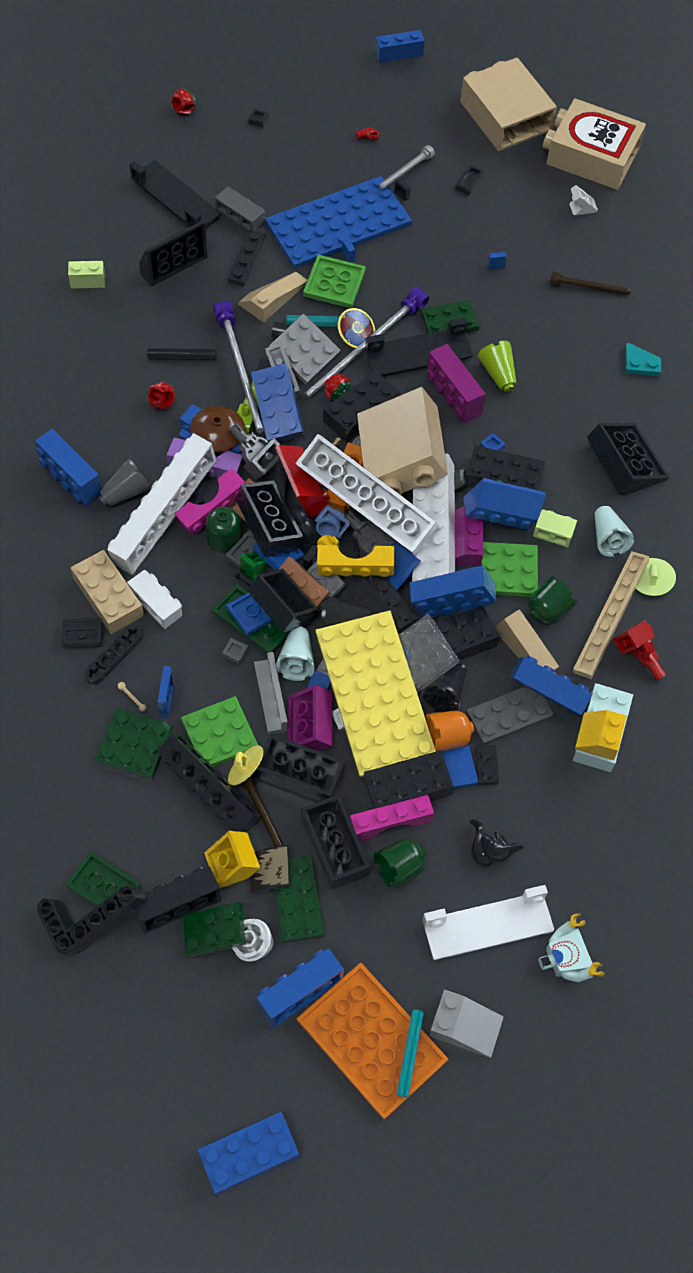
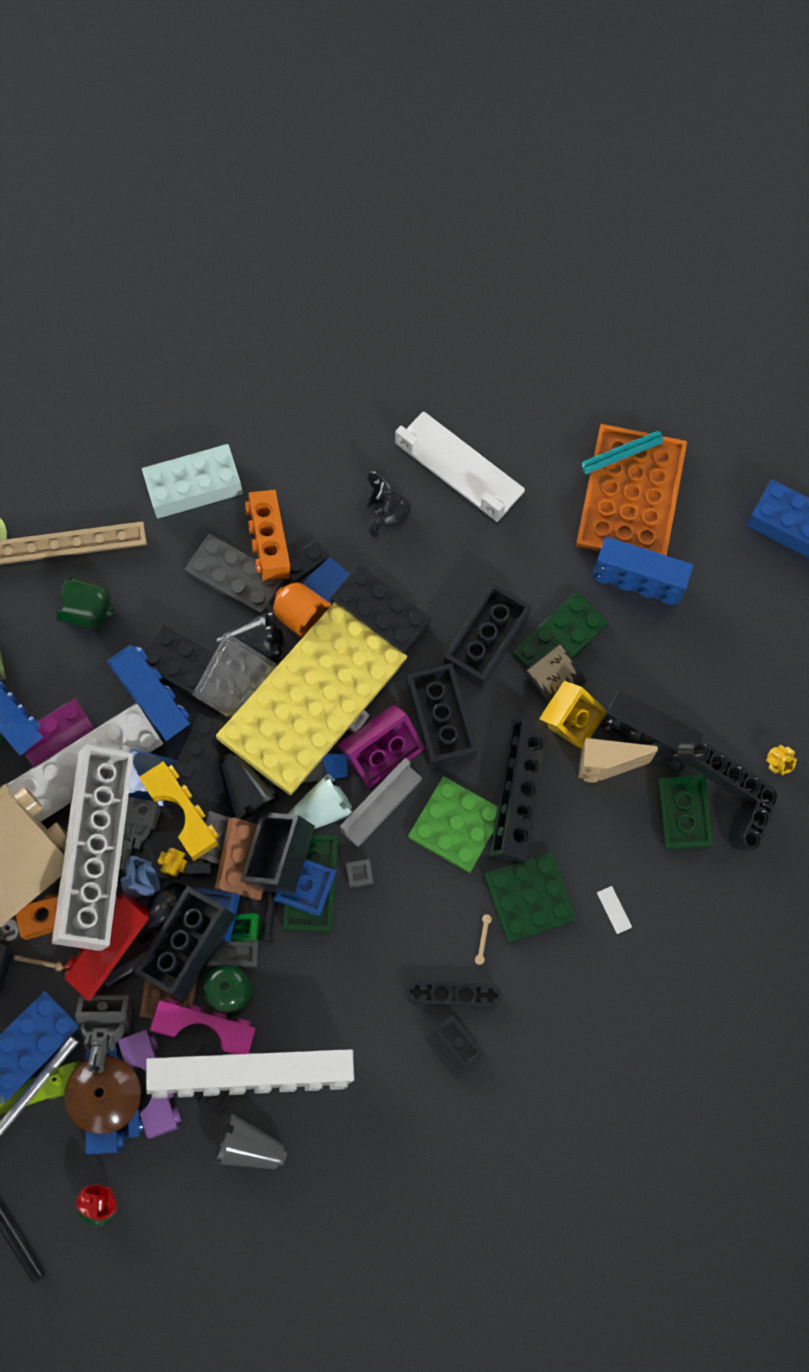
camera: 125 degrees left, 10 degrees up
(68, 467) = (272, 1228): blue brick -> none
(81, 792) = (614, 910): none -> white sticker
(81, 981) = (781, 760): none -> yellow gear
(107, 591) = (390, 1056): tan brick -> none
(155, 598) = (360, 1000): white brick -> none
(165, 692) = (461, 898): blue tile -> none
(181, 853) = (609, 758): none -> tan slope
(214, 929) = (649, 677): dark green plate -> none
(245, 765) = (476, 766): light yellow shield -> none
(249, 785) = (487, 759): dark brown piece -> none
(257, 941) = (633, 640): white cone -> none
(400, 862) = (463, 566): dark green cylinder -> none
(408, 812) = (445, 617): dark pink arch -> none
(466, 1024) = (561, 432): light grey slope -> none
(511, 748) = (266, 504): none -> orange brick
(512, 568) = (66, 672): bright green plate -> none
(523, 639) = (150, 600): tan slope -> none
(550, 685) = (185, 545): blue brick -> none
(569, 954) = (437, 385): light aqua torso -> none
(601, 733) = (211, 464): yellow slope -> none
(638, 642) = (75, 497): red brick -> none

